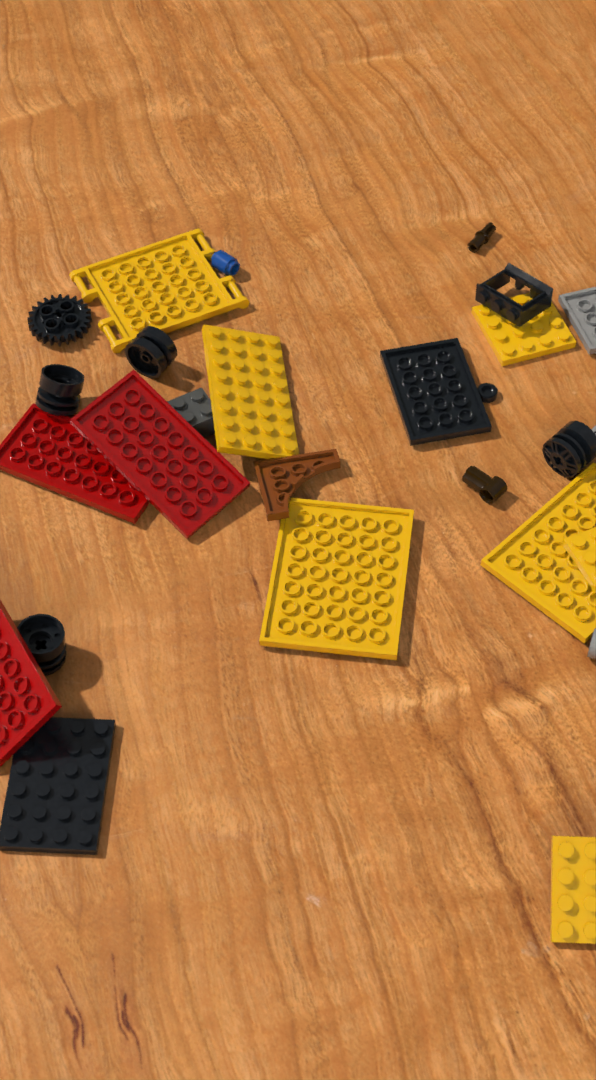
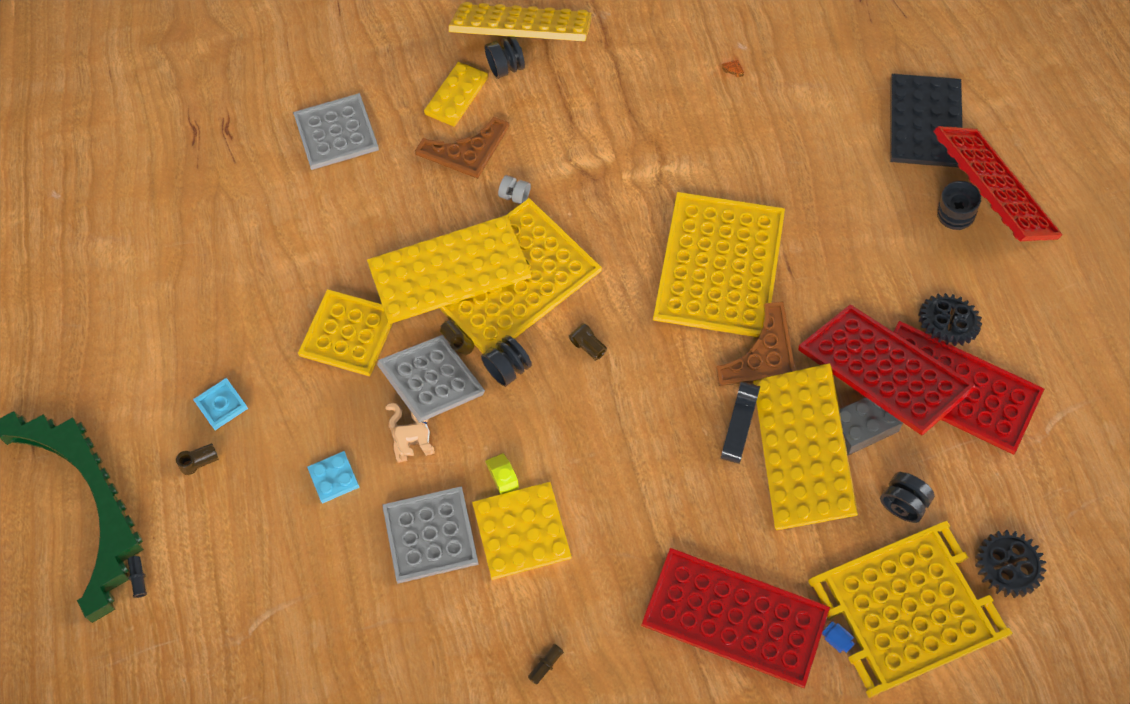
camera: 175 degrees left, 10 degrees up
(59, 390) = (991, 438): black wheel -> none
(95, 525) = (936, 316): none -> black gear
(311, 422) = (740, 422): none -> black beam
(317, 274) = (736, 617): none -> red plate
(326, 853) = (733, 68): none -> clear orange tile
(435, 391) = (622, 450): black plate -> none
(487, 392) = (570, 448): black tile -> none
(539, 292) = (545, 536): black window -> none
(552, 363) = (502, 474): none -> neon yellow slope

